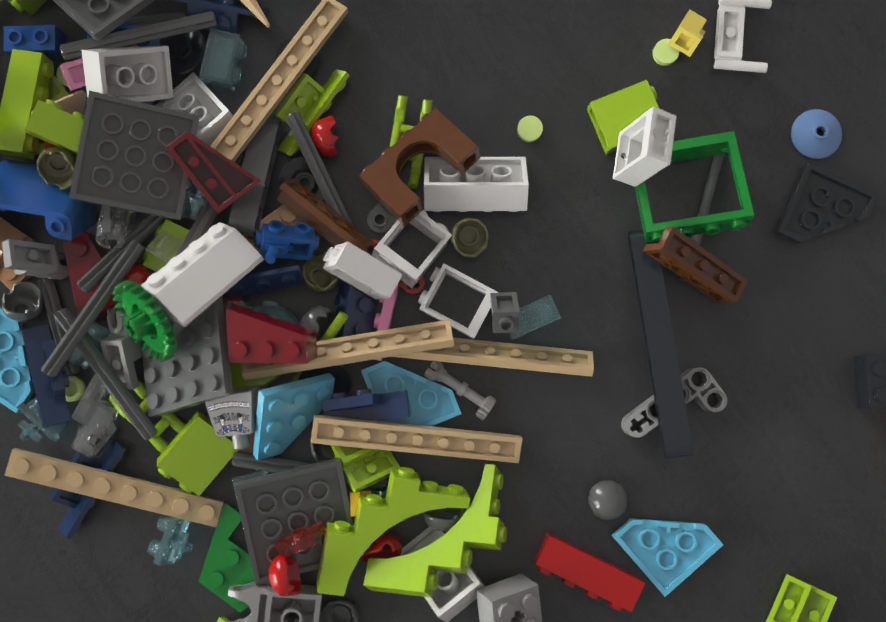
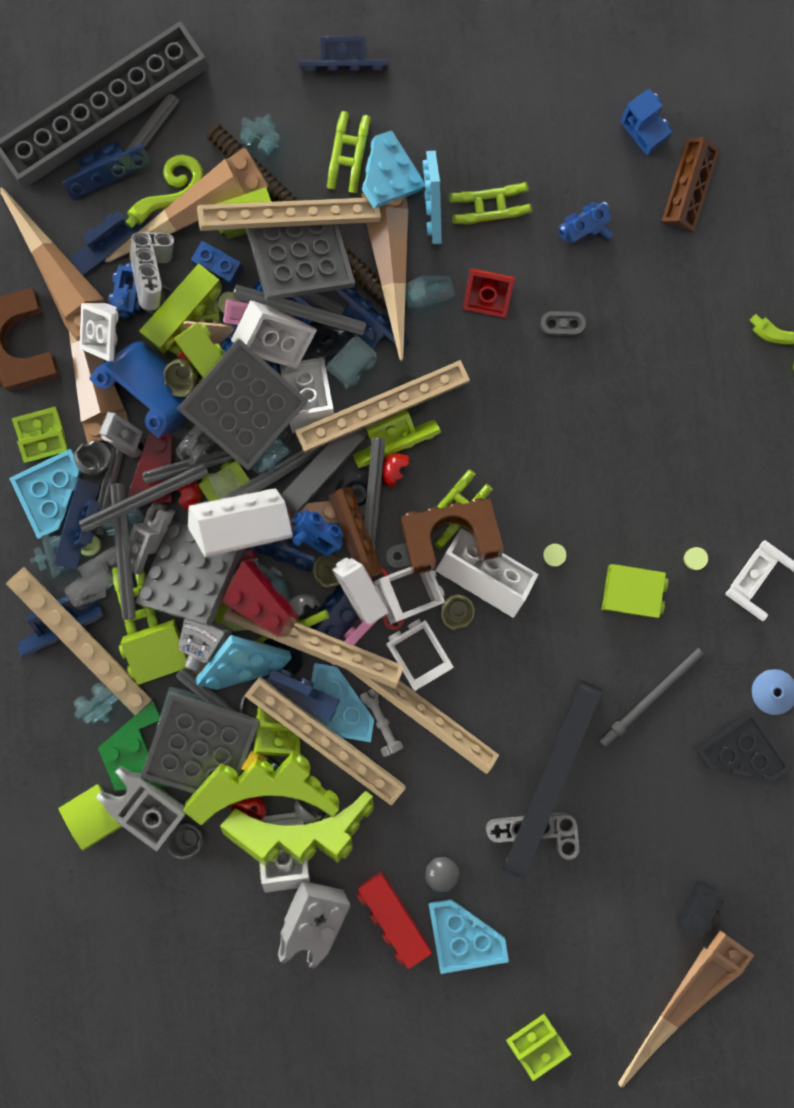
camera: 30 degrees right, 0 degrees up
(146, 320) = (178, 533): green gear -> none
(211, 172) = (293, 452): dark red wedge -> none
(285, 575) = (167, 783): red hair -> none
(300, 538) = (195, 763): clear red plate -> none
(505, 312) = (449, 686): dark grey bracket -> none
(536, 316) = (467, 701): clear light blue piece -> none
(645, 147) = (629, 626): white window -> none
(688, 33) = (720, 555): light yellow brick -> none
(697, 266) = (616, 739): reddish brown fence -> none
(708, 224) = (662, 644): green window -> none

